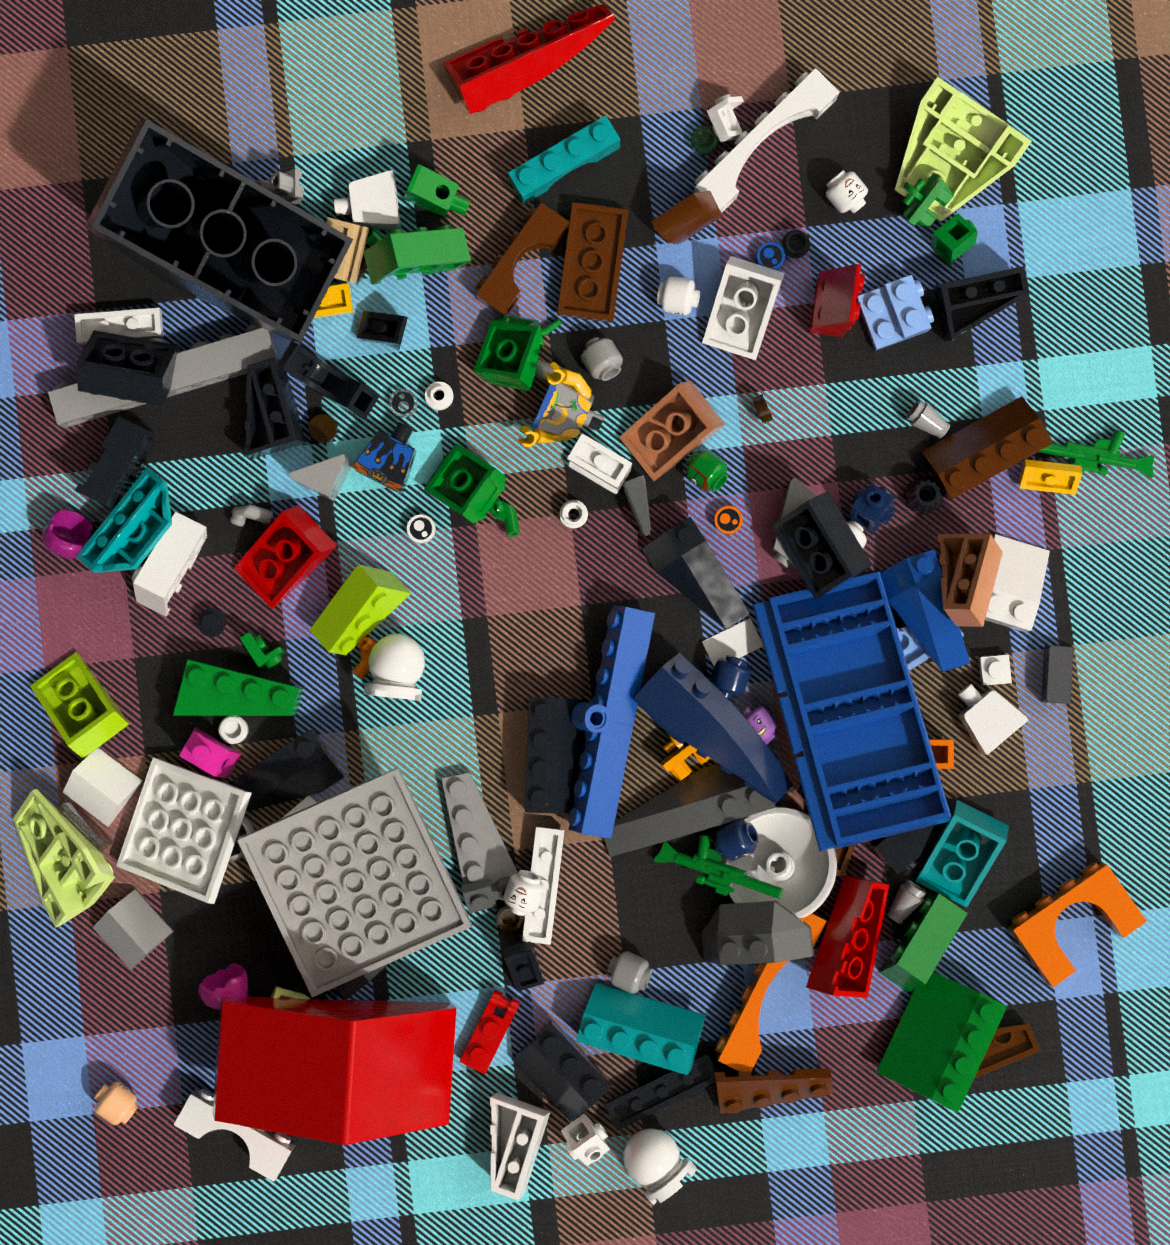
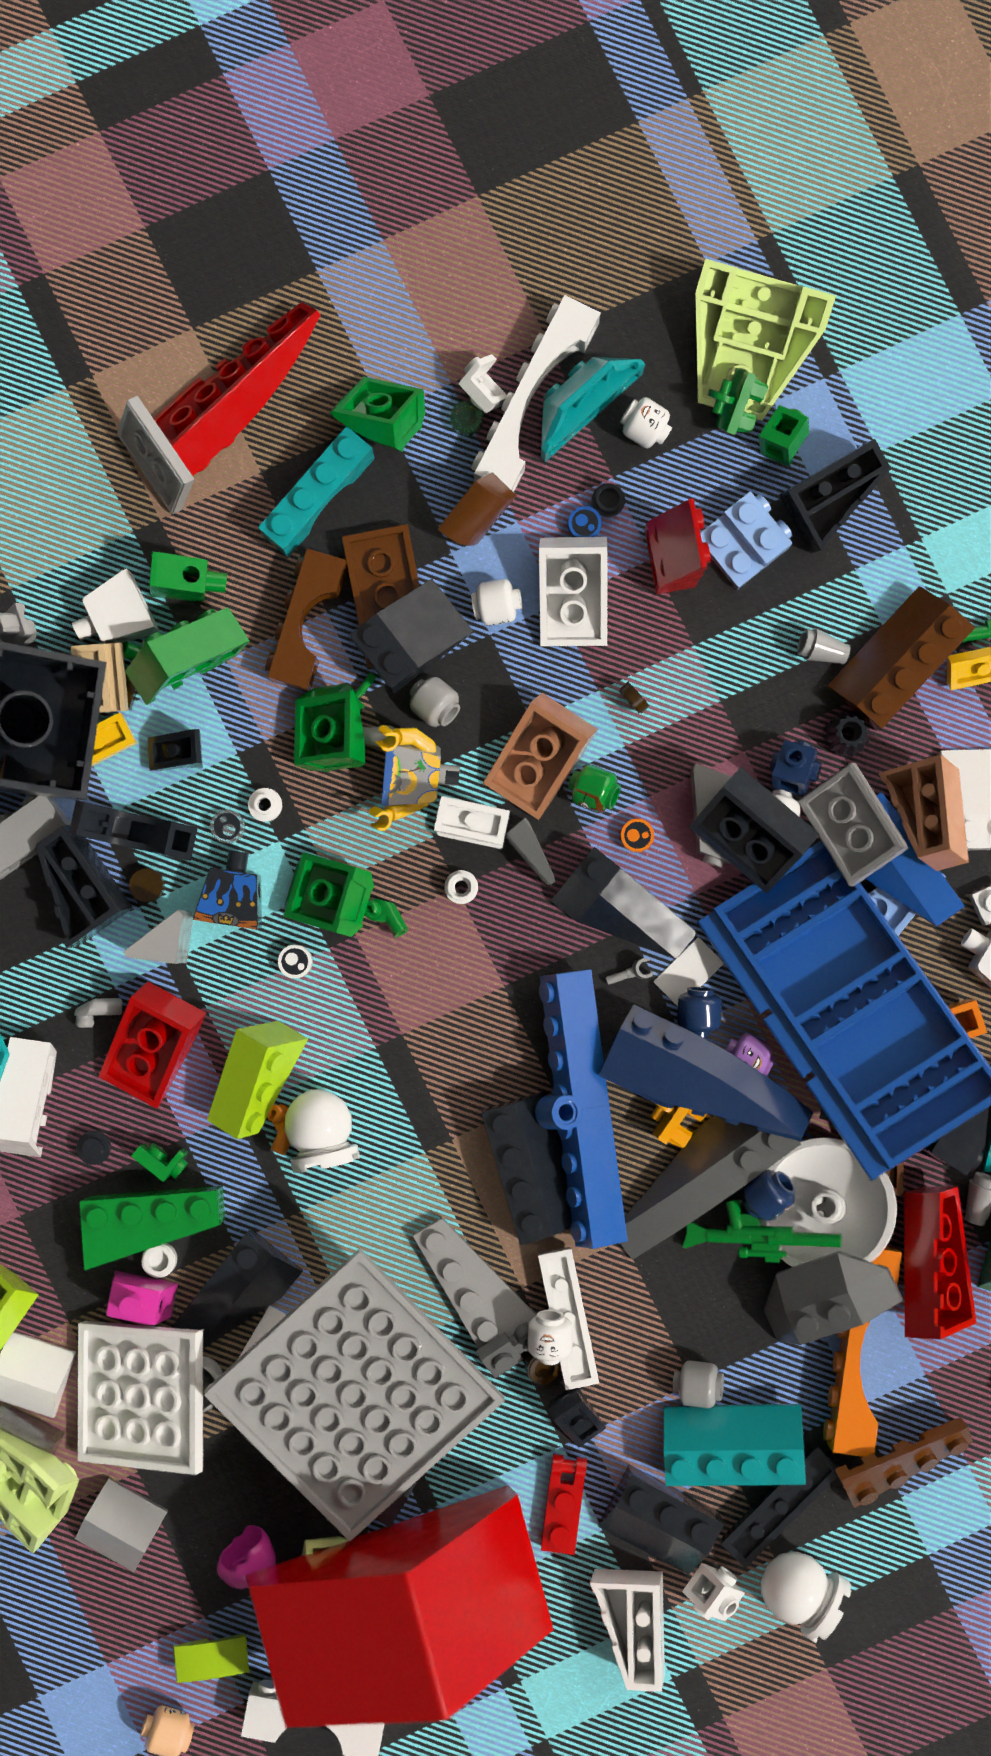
camera: 20 degrees left, 0 degrees up
(169, 1058) = (210, 1659): none -> lime slope
(445, 87) = (155, 455): none -> light grey tile
(601, 299) = (411, 635): none -> black slope
(638, 113) = (382, 412): none -> green slope
(685, 628) = (629, 973): none -> light grey hand
(803, 155) = (583, 397): none -> teal wedge
(902, 567) = (853, 824): none -> light grey tile

